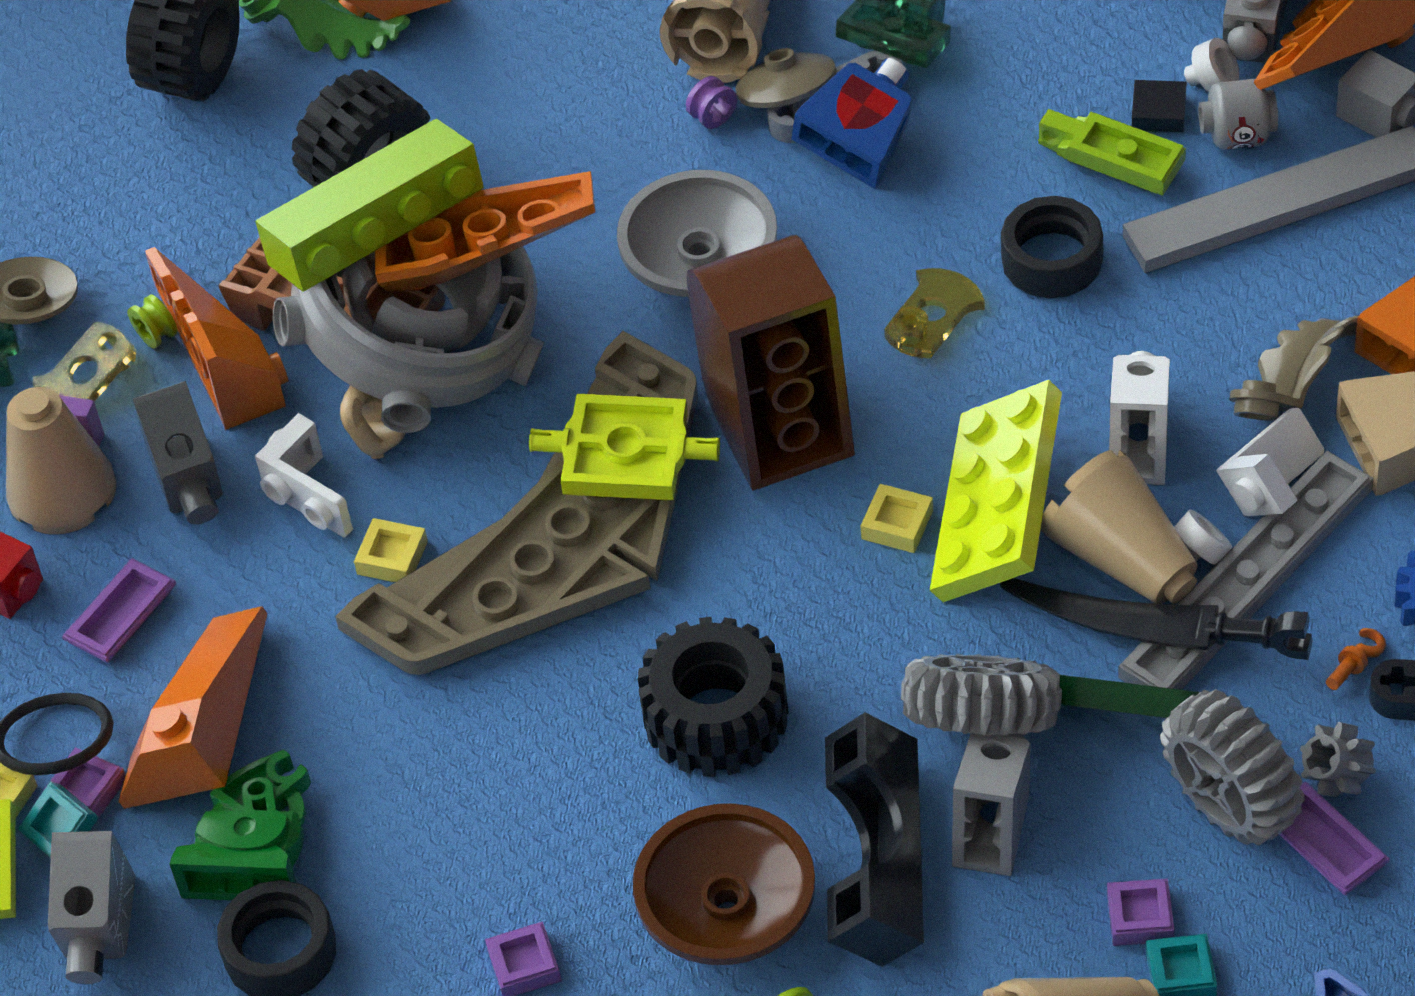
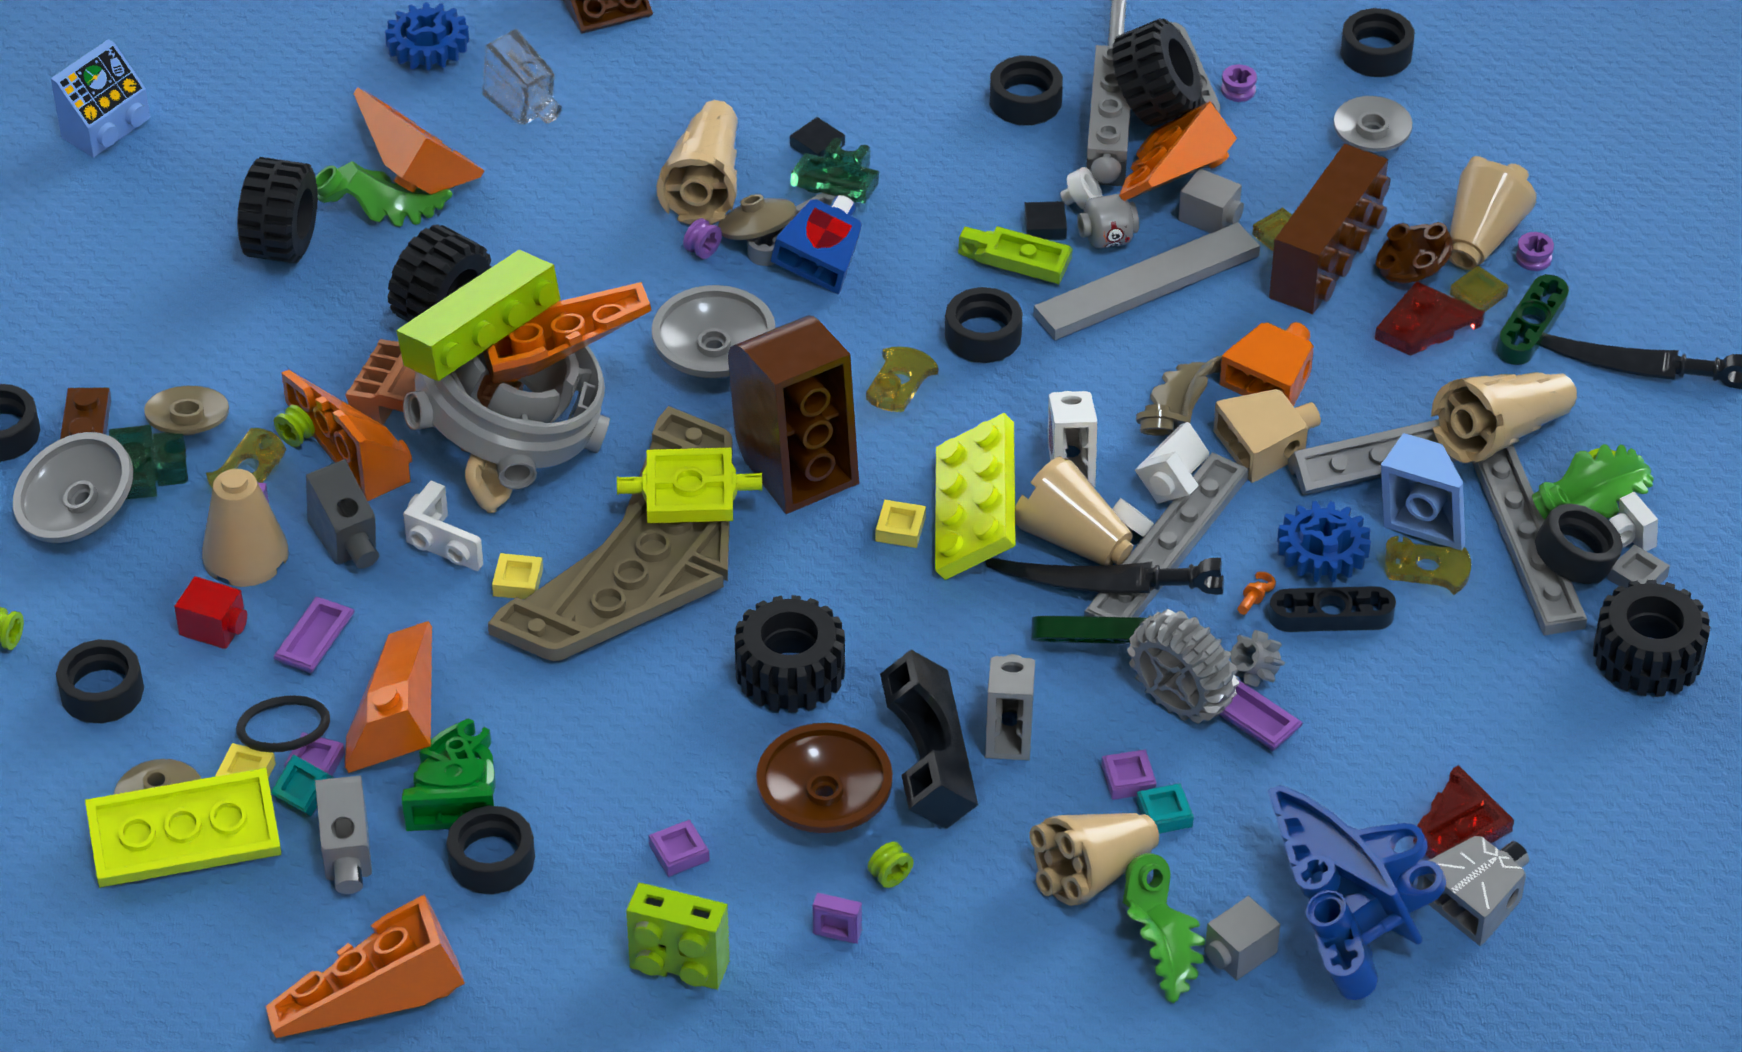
camera: 15 degrees left, 5 degrees down
(981, 694) = (992, 632): light grey gear -> none

